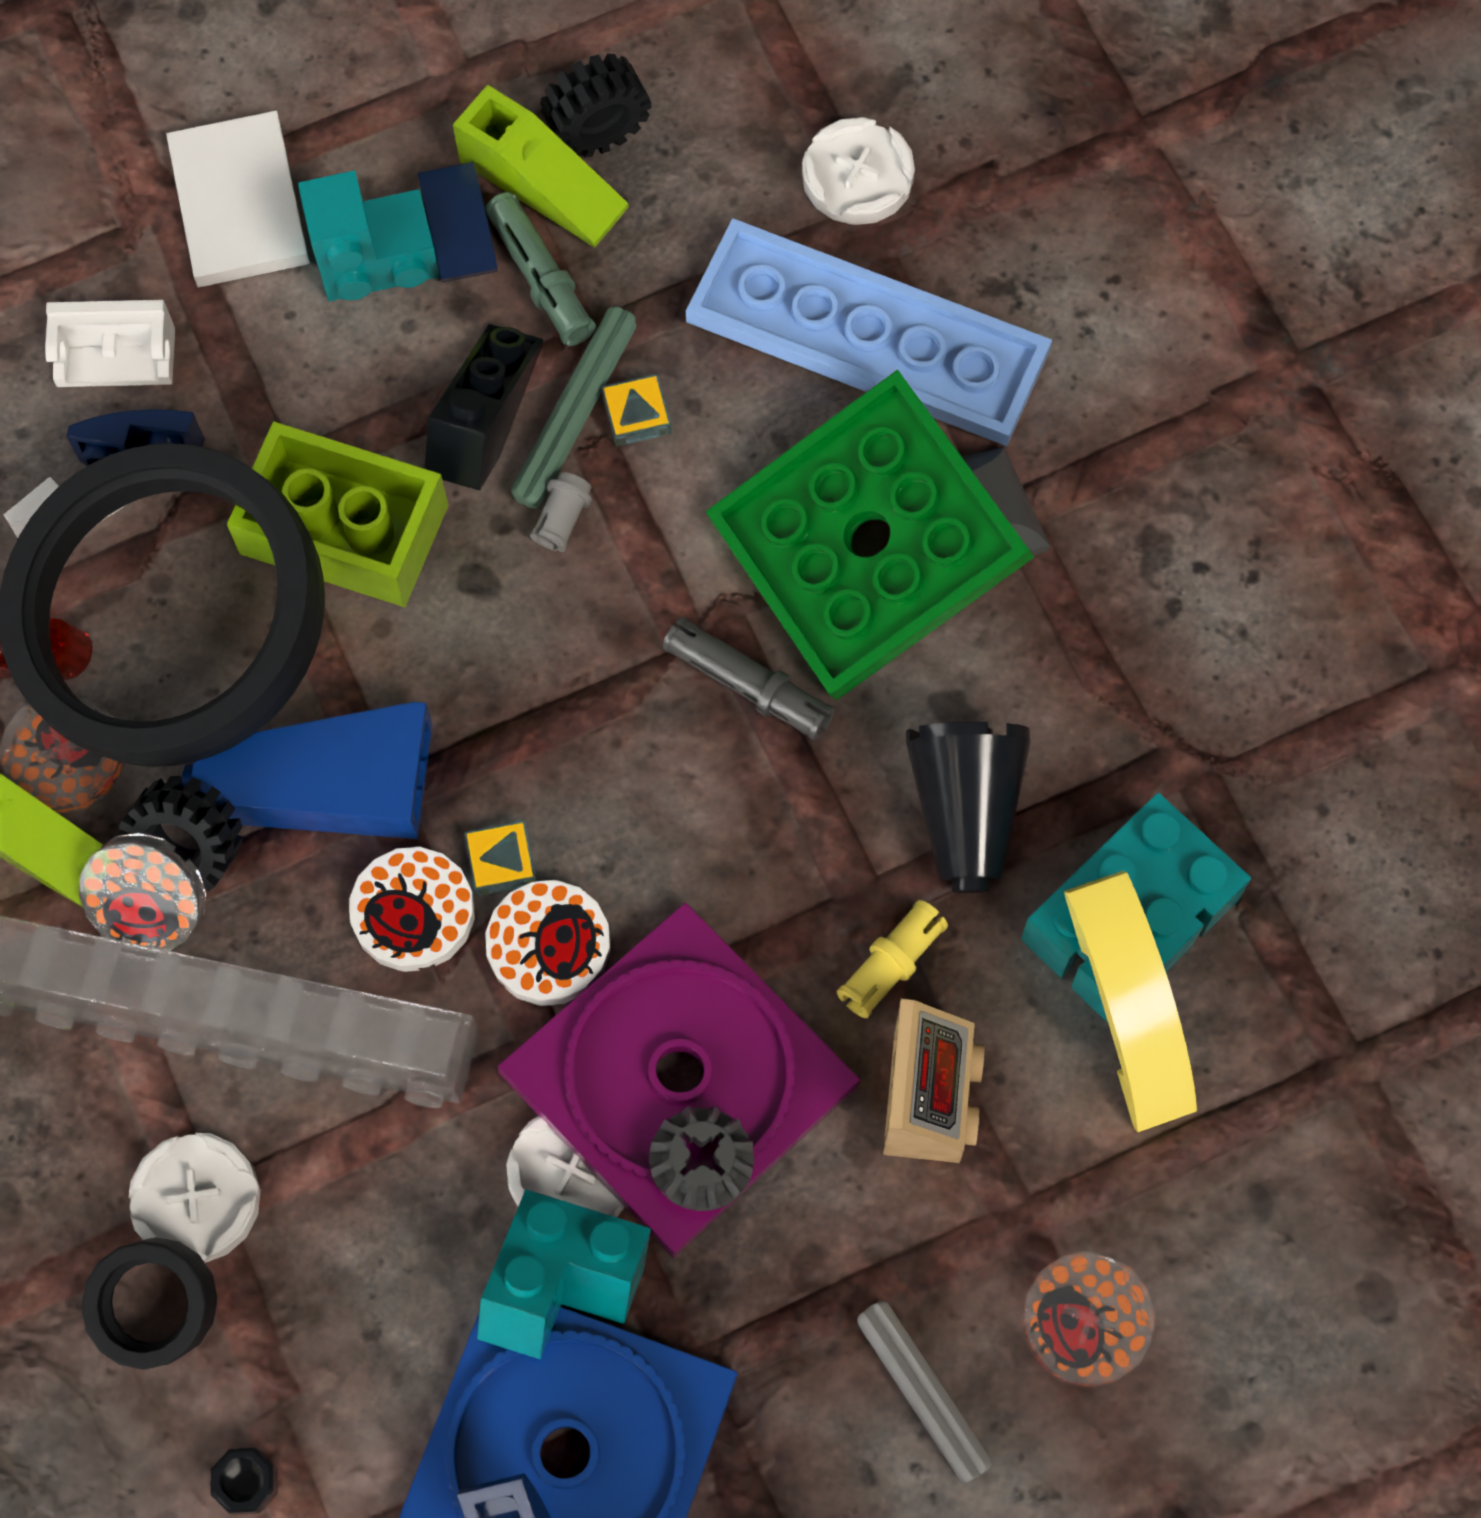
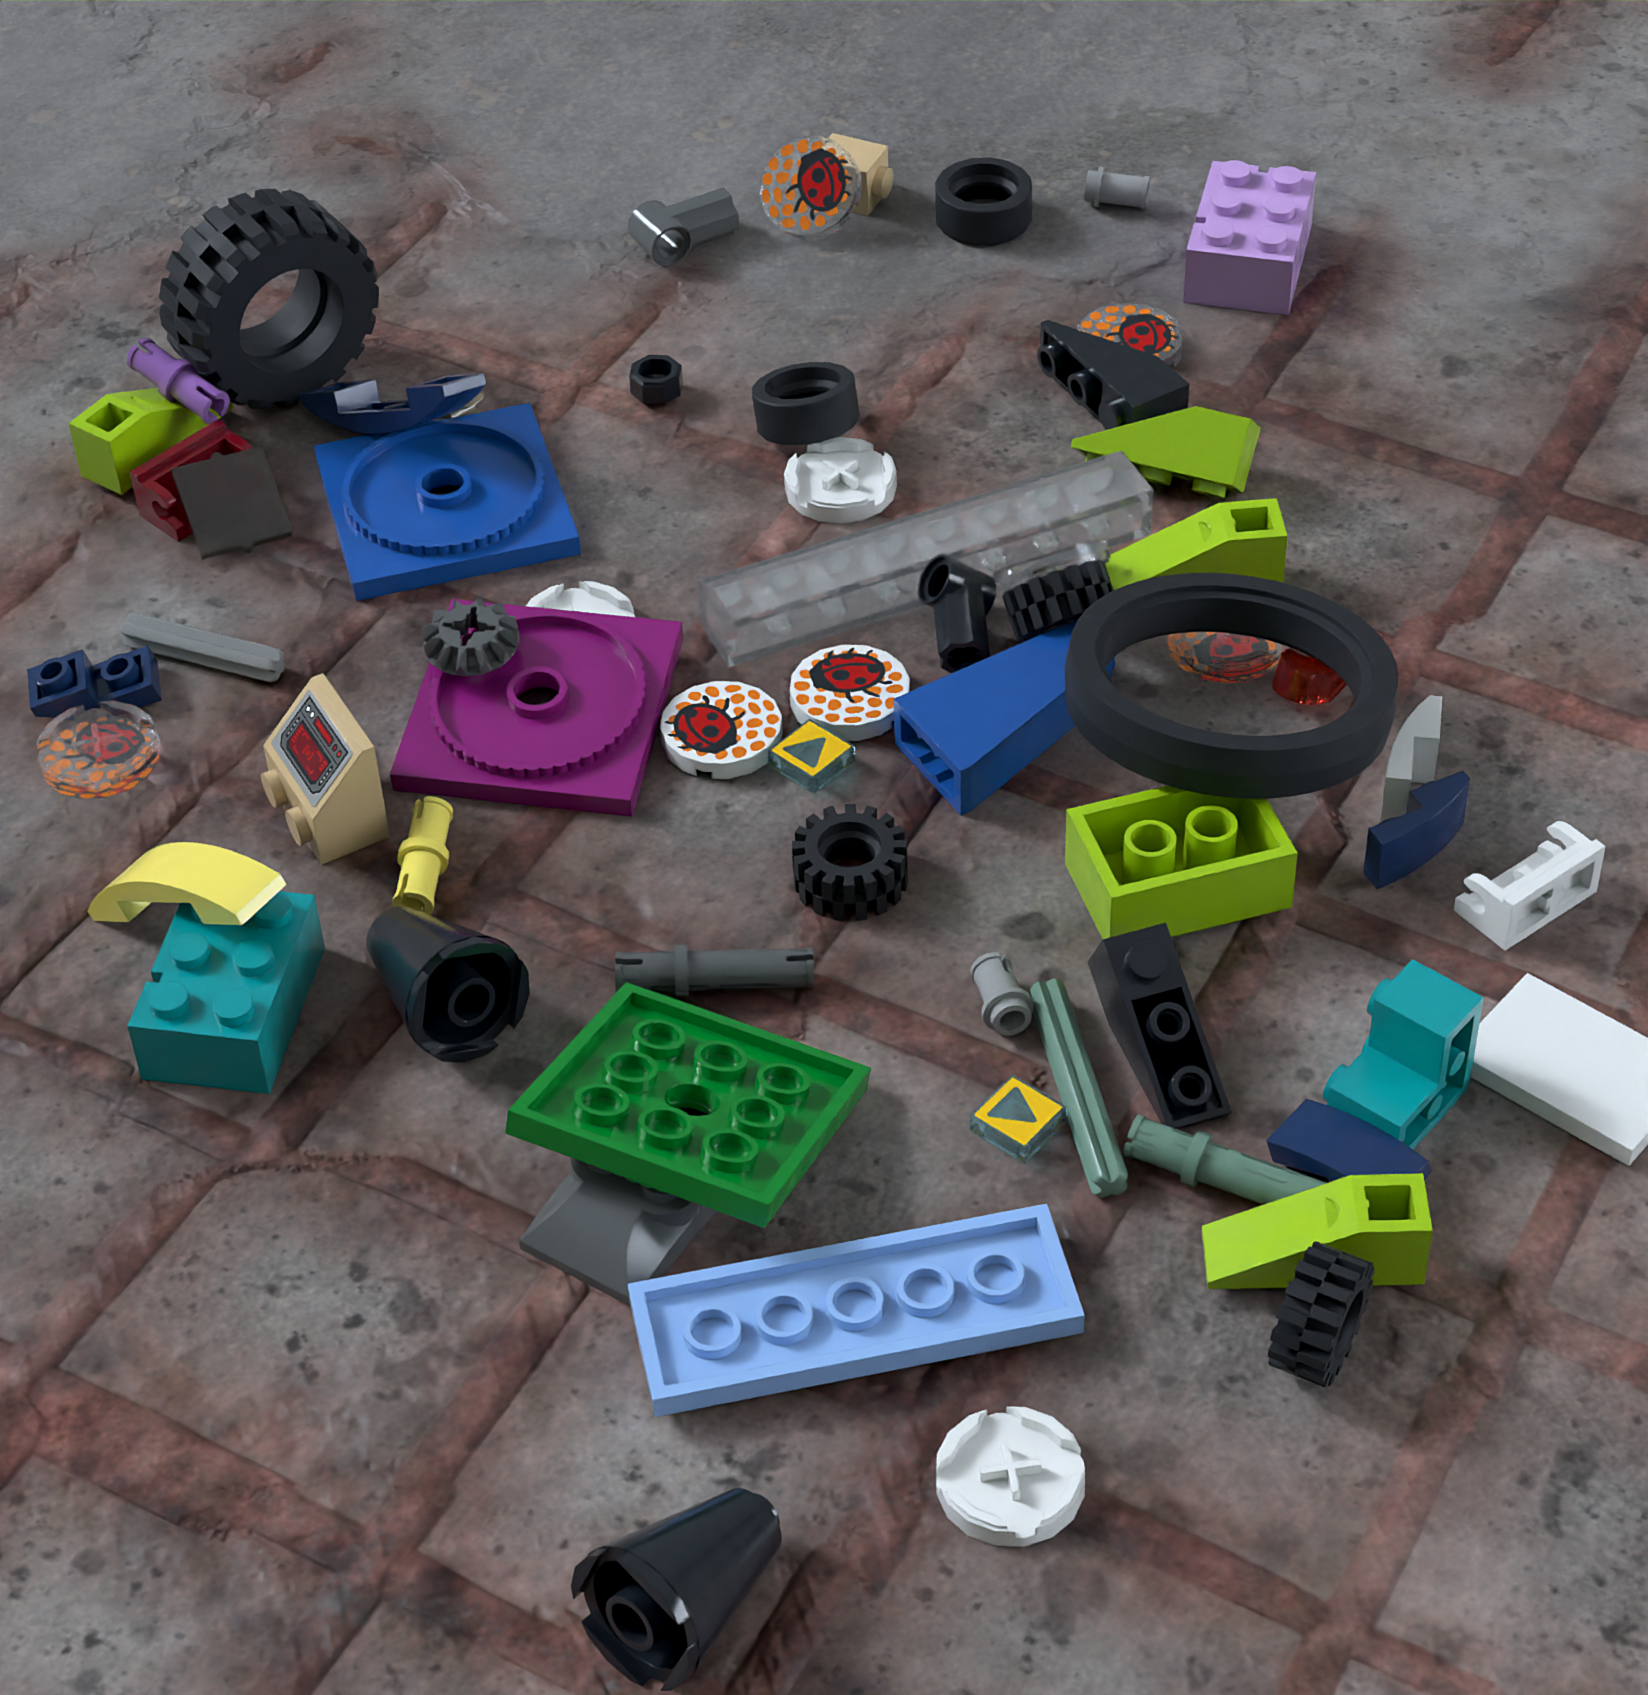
camera: 145 degrees right, 25 degrees down
(256, 912) = (960, 606): none -> black piece
(557, 1258) = (534, 546): teal brick -> none
(559, 677) = (850, 887): none -> black tyre
(1050, 1412) = (76, 682): none -> dark blue slope
(1119, 200) = (676, 1585): none -> black cone

